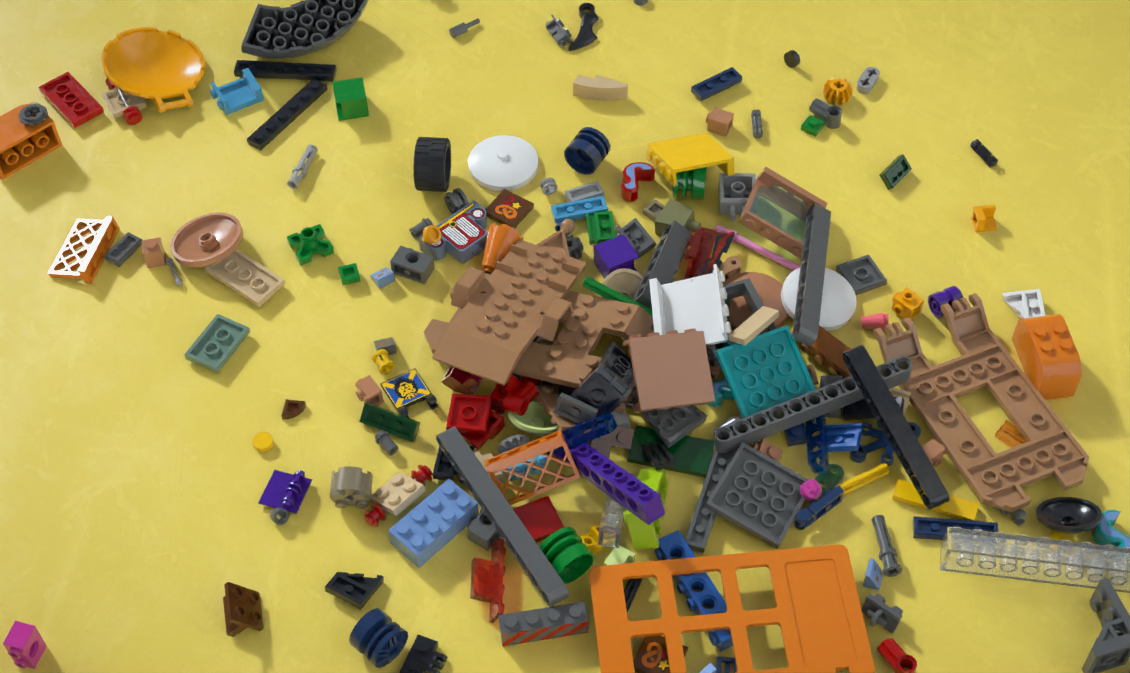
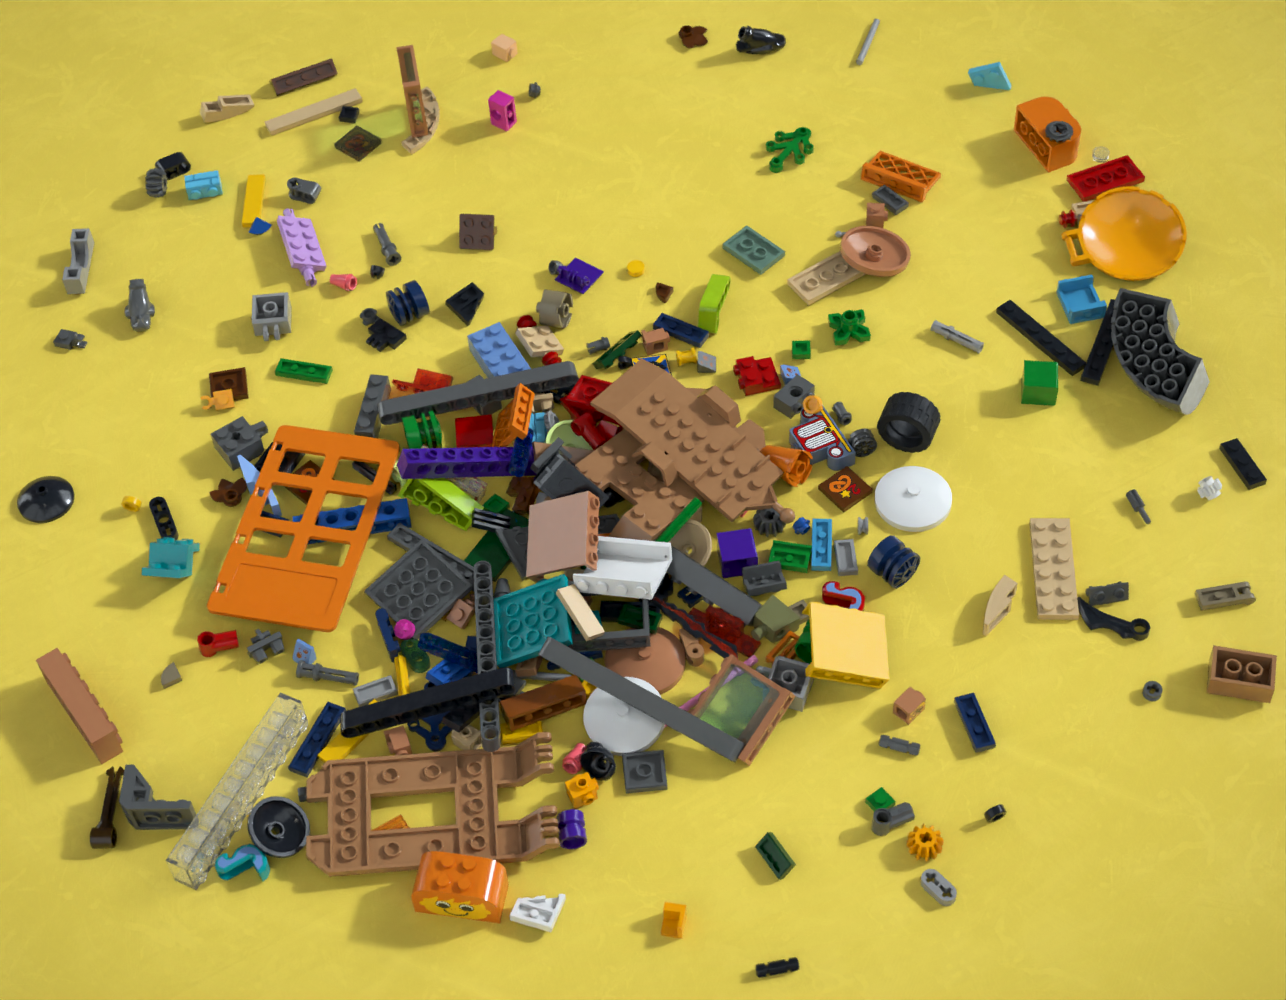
camera: 110 degrees right, 0 degrees up
(30, 343) = (800, 135): none -> green plant
(304, 350) = (712, 302): none -> lime beam
(347, 376) = (681, 330): none -> dark blue plate
(390, 302) = (756, 375): none -> red plate
(545, 66) = (1053, 569): none -> tan plate
(630, 464) = (496, 504): none -> green plate
(699, 208) = (770, 657): none -> orange tile
(872, 302) = (594, 763): none -> black piece
(881, 500) = (377, 690): none -> light grey tile

